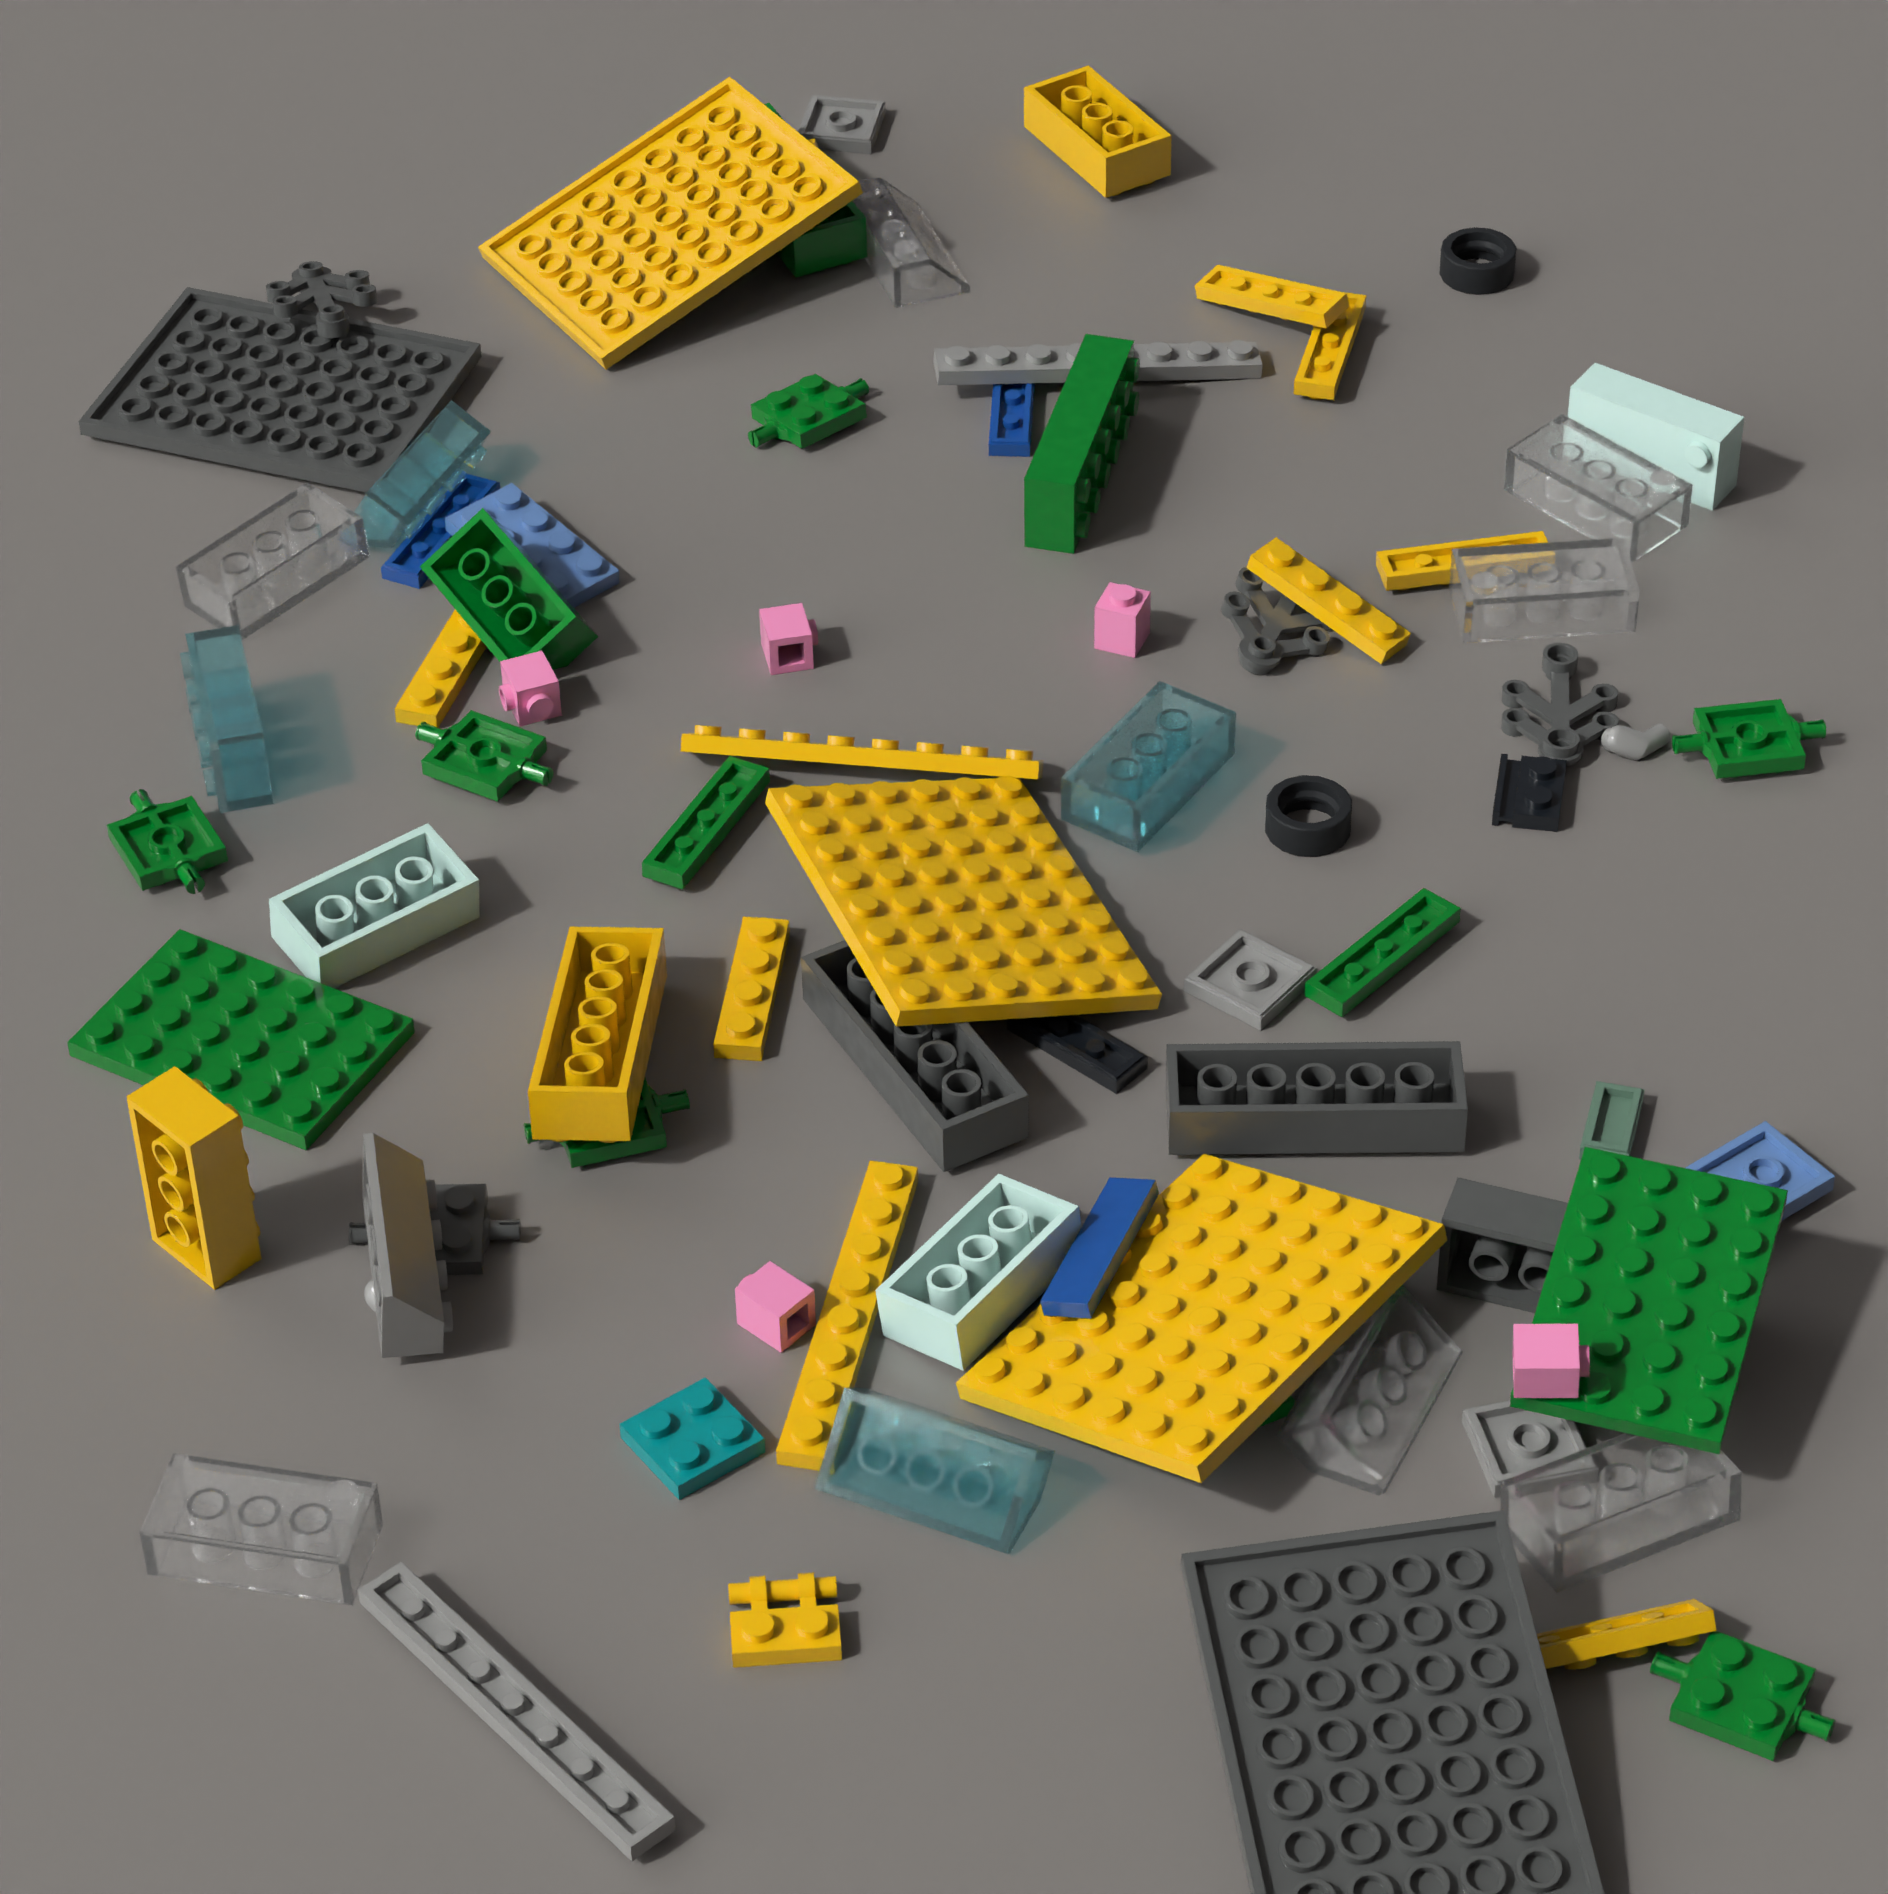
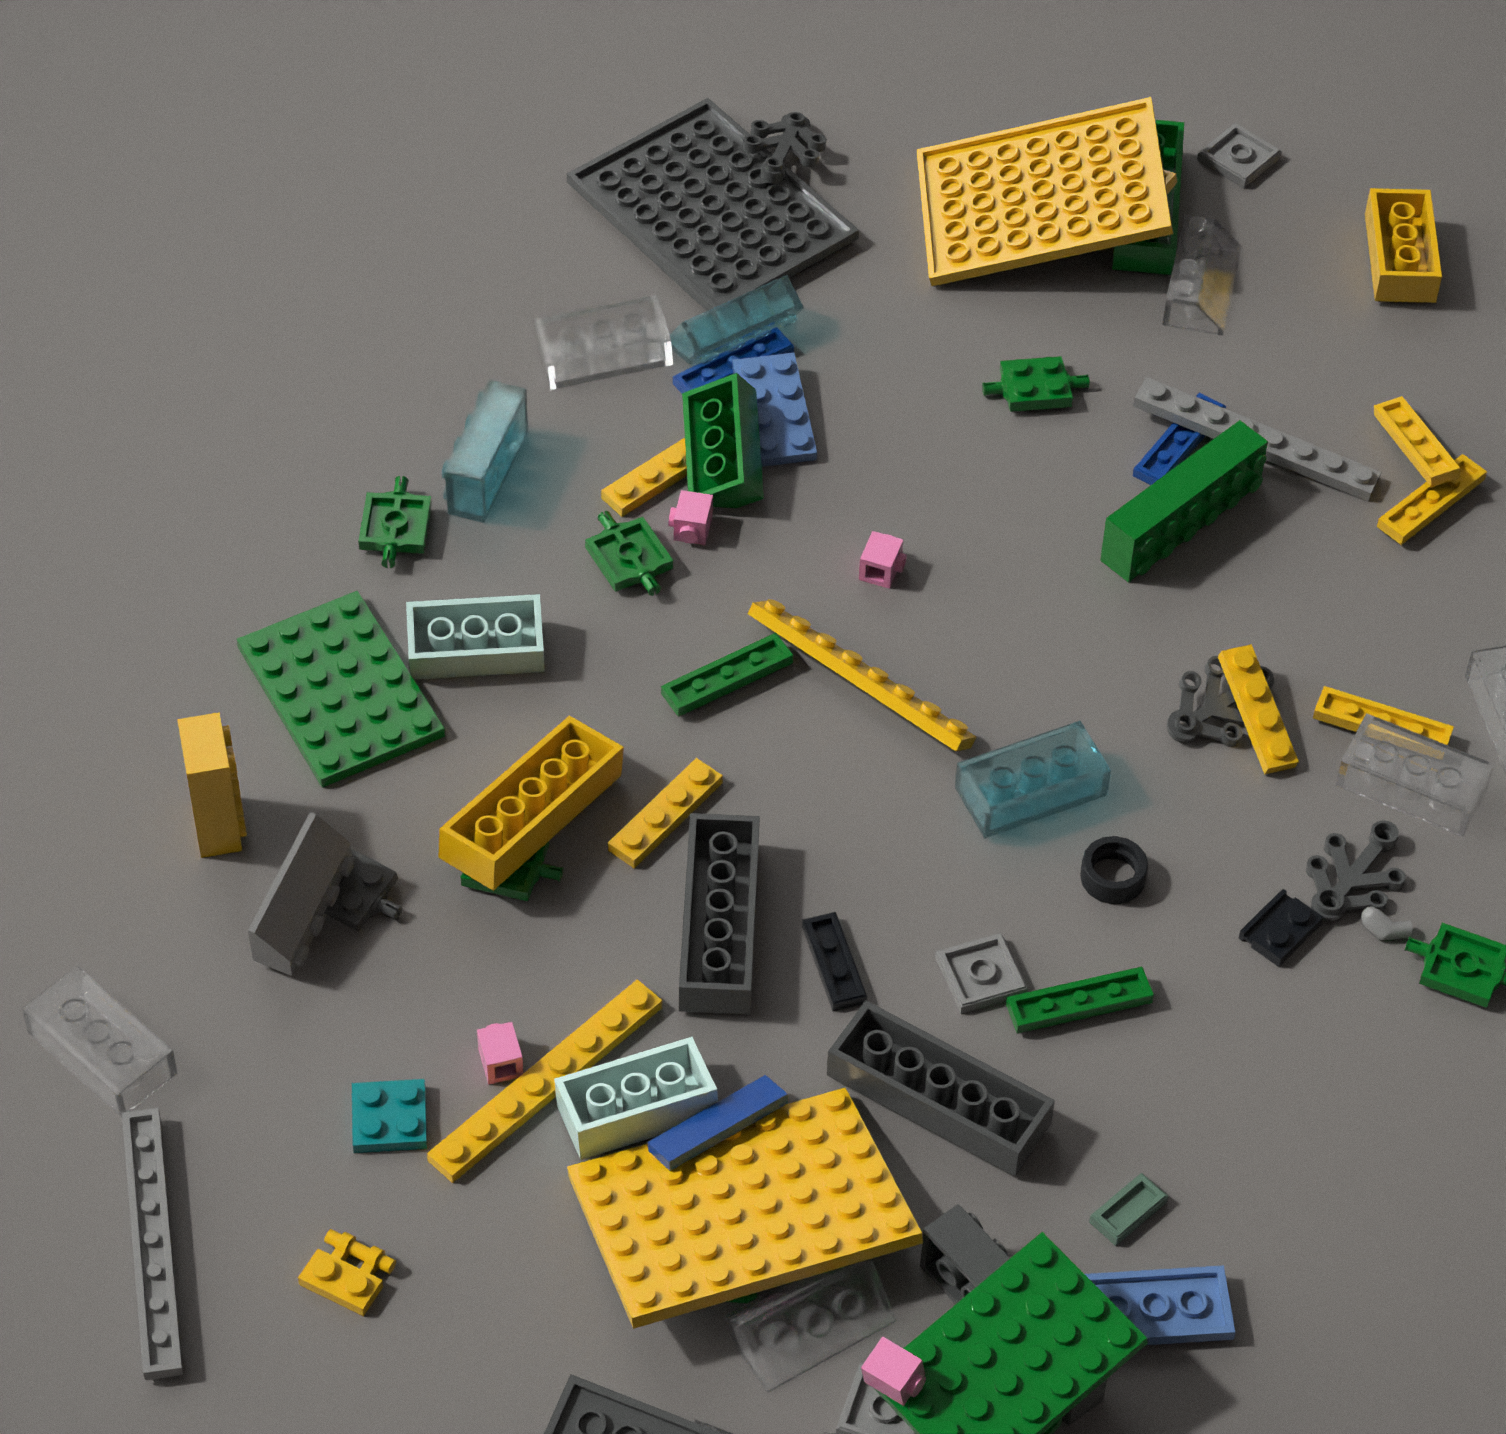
camera: 30 degrees right, 10 degrees up
(933, 1469) = (507, 1219): clear light blue slope -> none
(960, 901) = (827, 821): yellow plate -> none
(1122, 619) = (1108, 654): bright pink brick -> none

